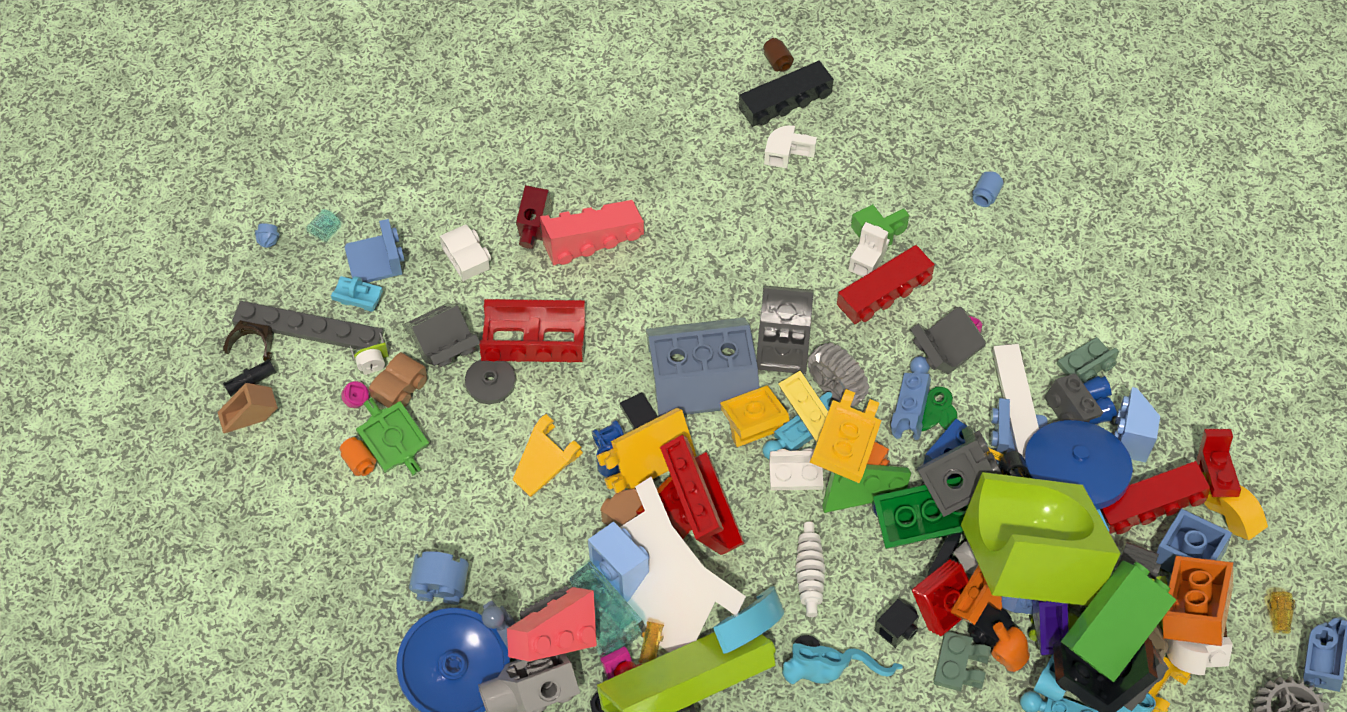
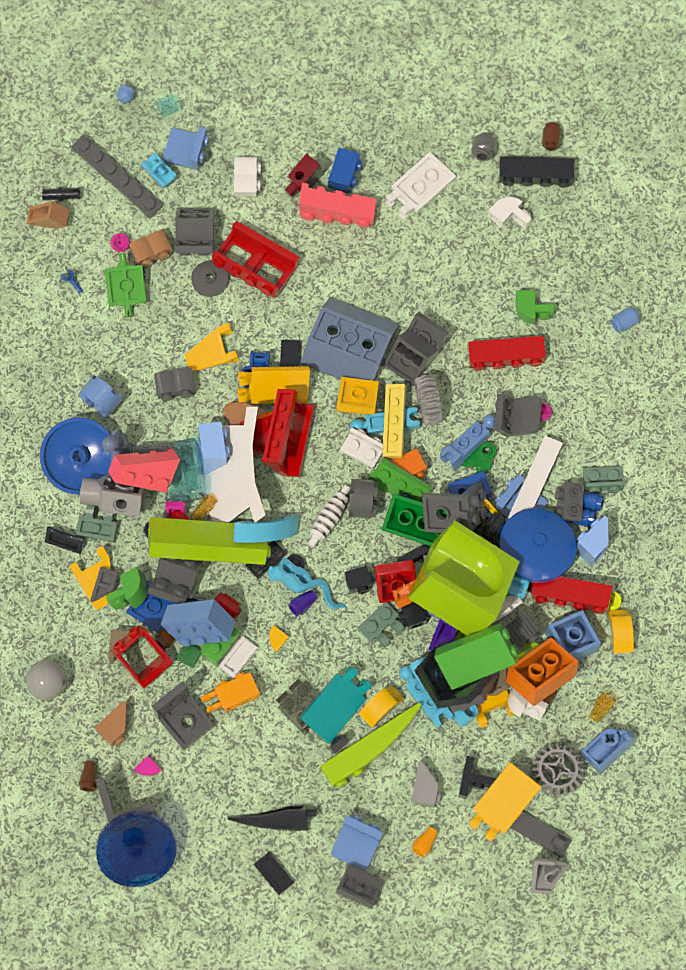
camera: 30 degrees right, 15 degrees up
(243, 328) = (86, 166): dark brown helmet -> none
(316, 460) = (71, 280): none -> blue hand
(357, 456) = (97, 287): orange brick -> none
(371, 358) = (143, 223): white piece -> none
(522, 516) = (174, 383): none -> dark grey brick
(575, 188) = (344, 169): none -> blue brick
(669, 168) = (420, 185): none -> white tile
(713, 97) = (483, 147): none -> flat silver head
(767, 679) = (276, 555): none -> black tile
(839, 523) = (362, 497): none -> dark grey brick
(847, 438) = (400, 446): yellow tile -> none
(847, 690) = (302, 603): none -> dark purple cone
(870, 250) = (510, 323): white brick -> none
(1011, 647) = (415, 634): orange piece -> none
(1217, 463) = (627, 596): red bracket -> none

